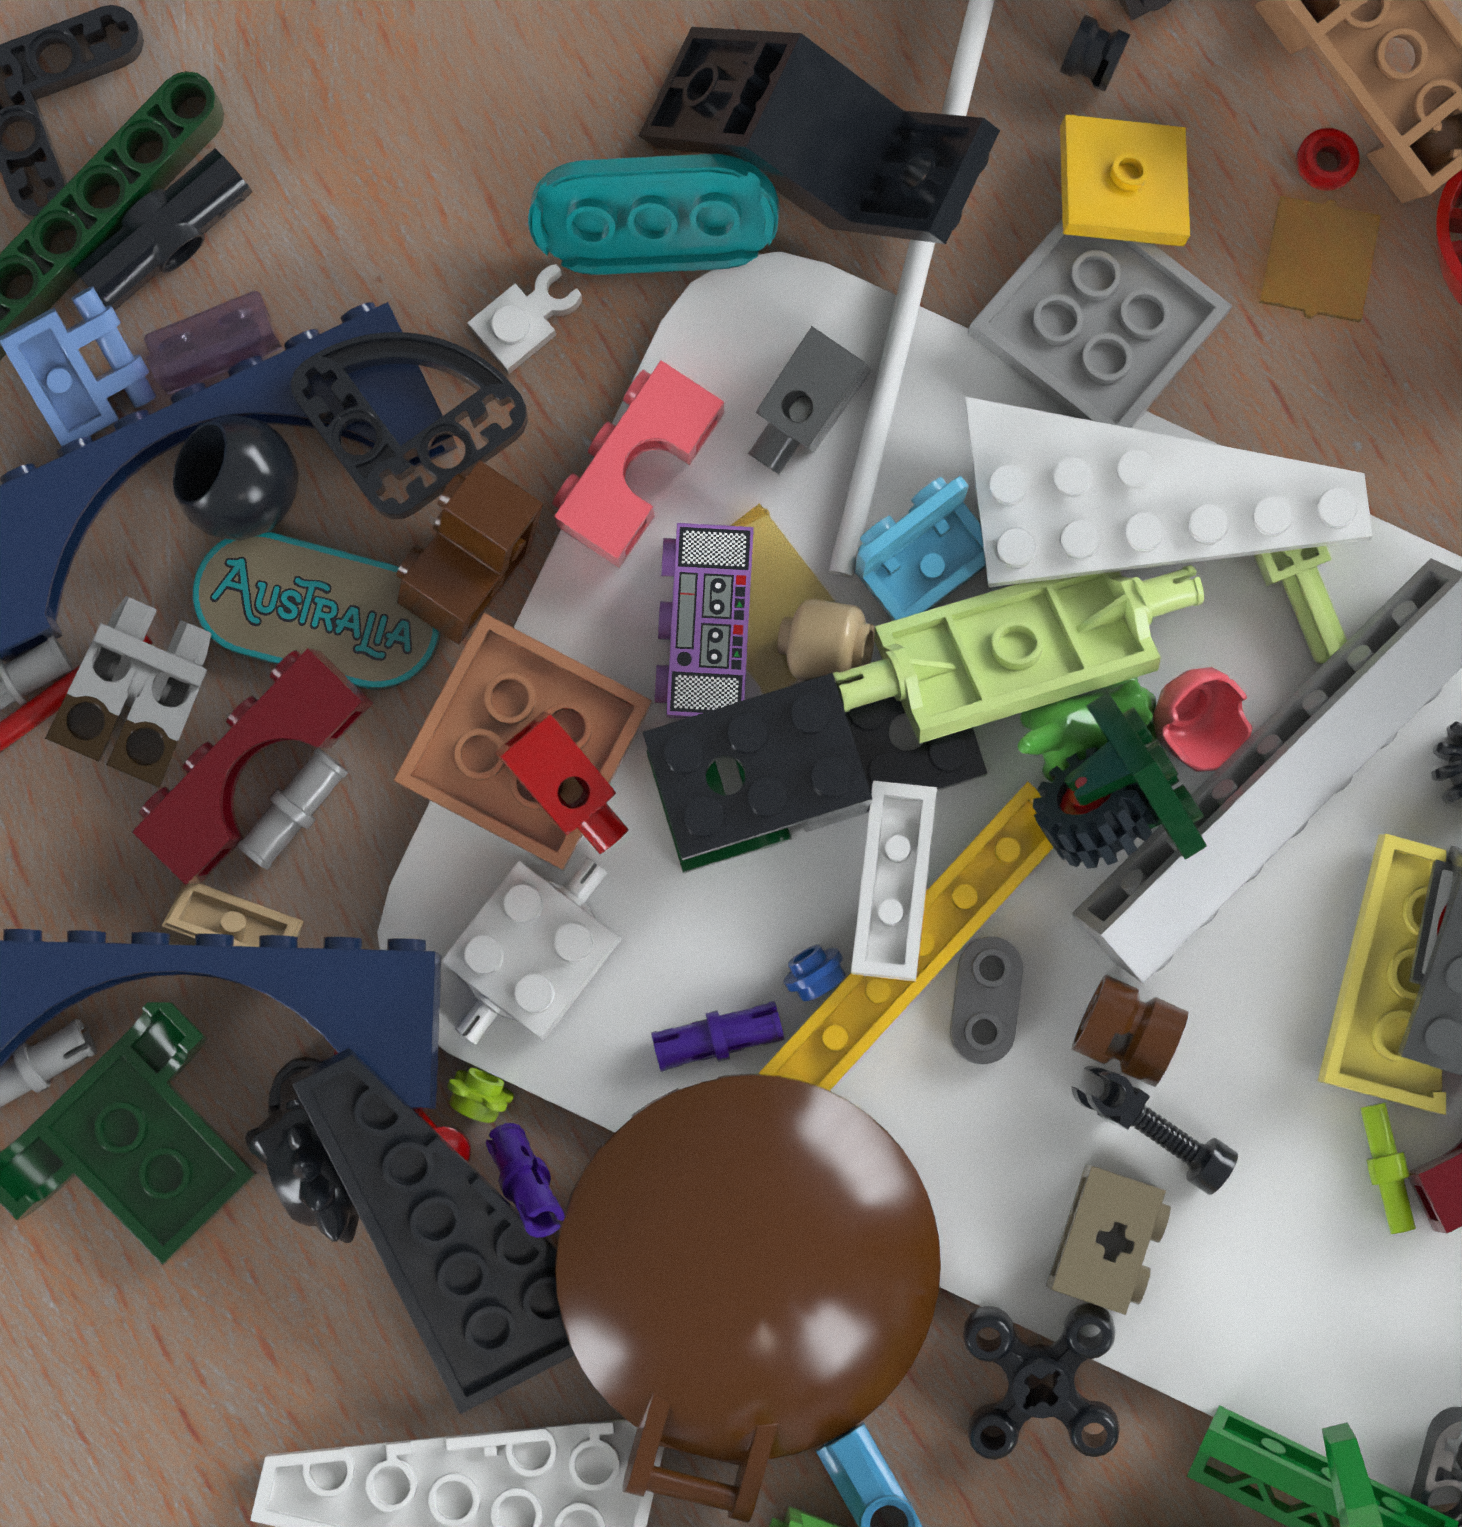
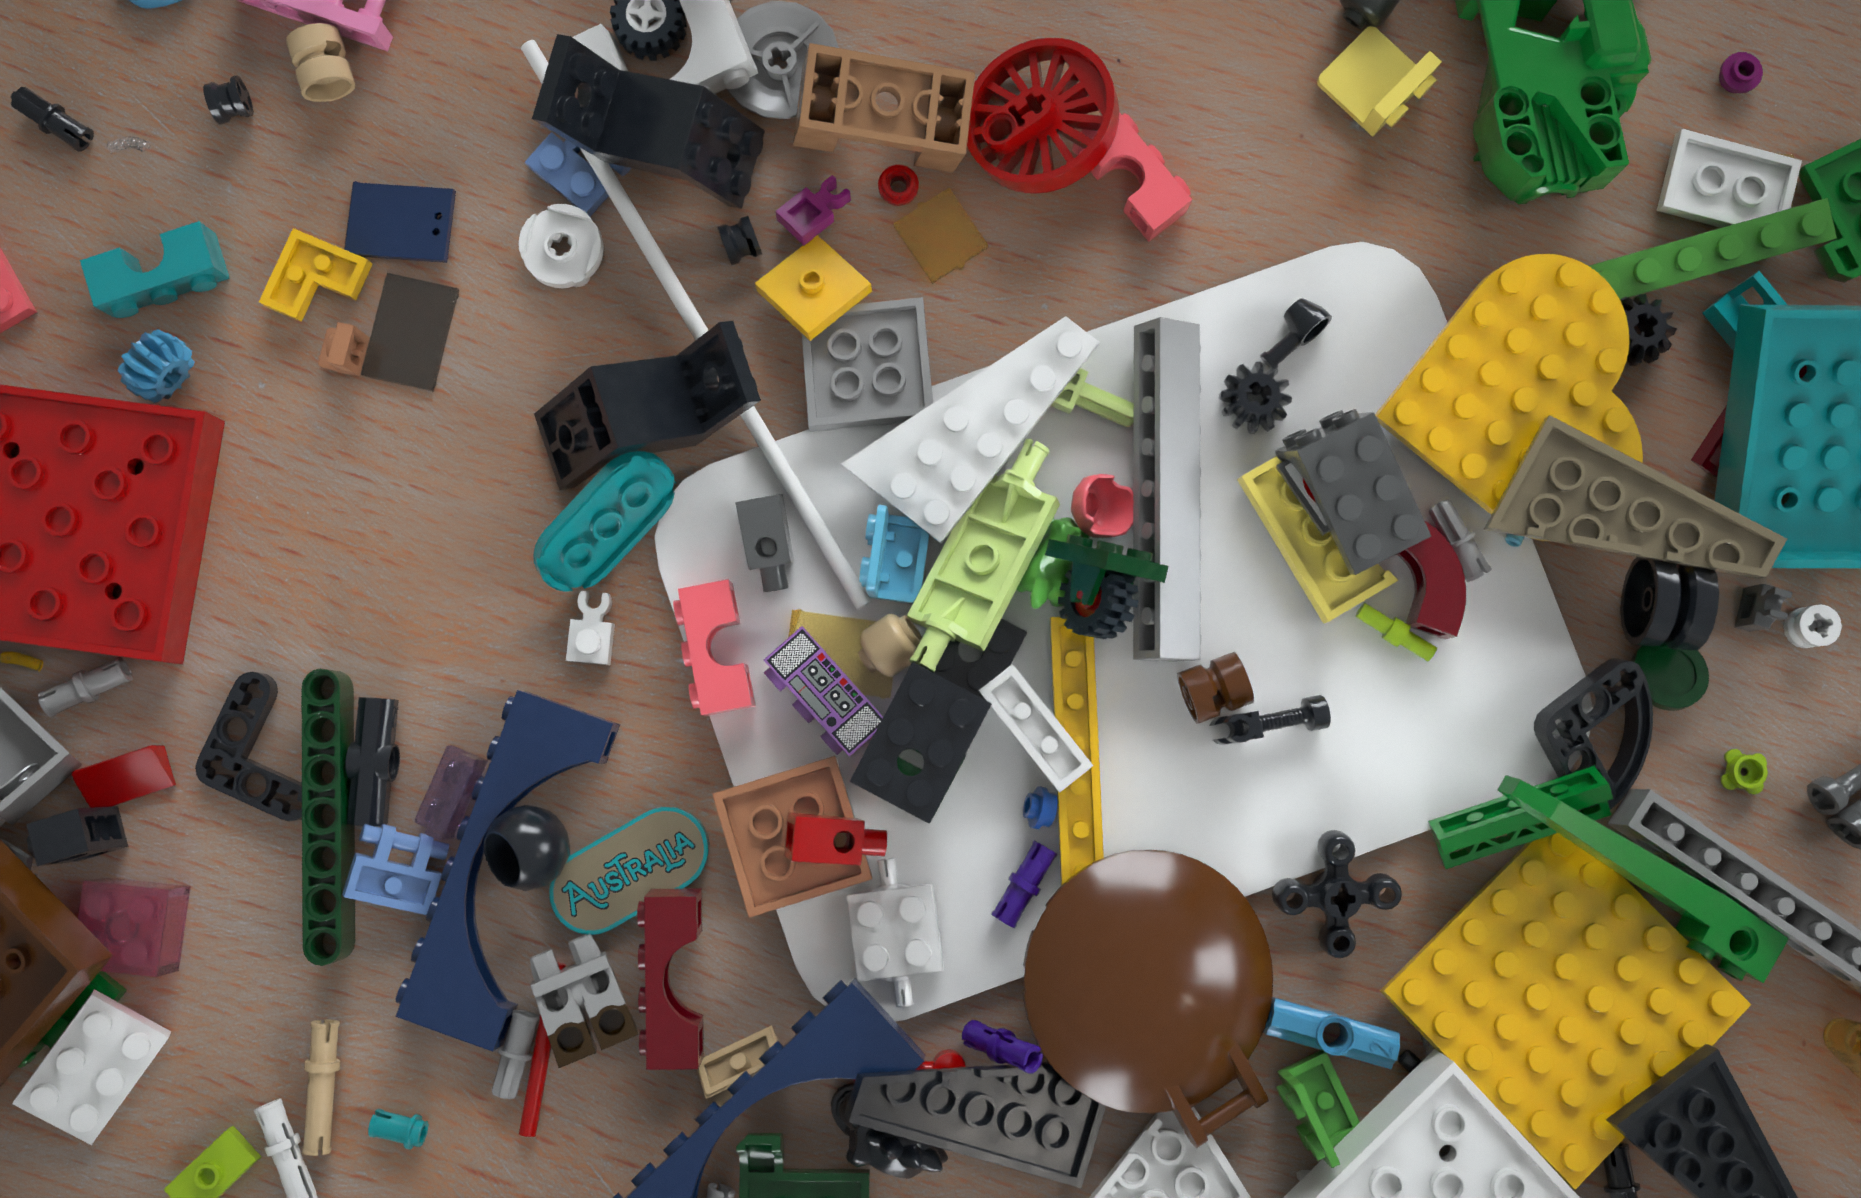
camera: 45 degrees left, 0 degrees up
(292, 809) = (713, 978): light grey pin -> none
(387, 455) = (590, 764): black beam -> none
(476, 550) = (678, 764): reddish brown brick -> none
(478, 1095) = (938, 1025): lime plate -> none
(986, 1000) = (1133, 739): flat silver plate -> none
(1079, 1260) = (1282, 785): dark tan brick -> none
(1200, 98) = (811, 213): none -> magenta plate

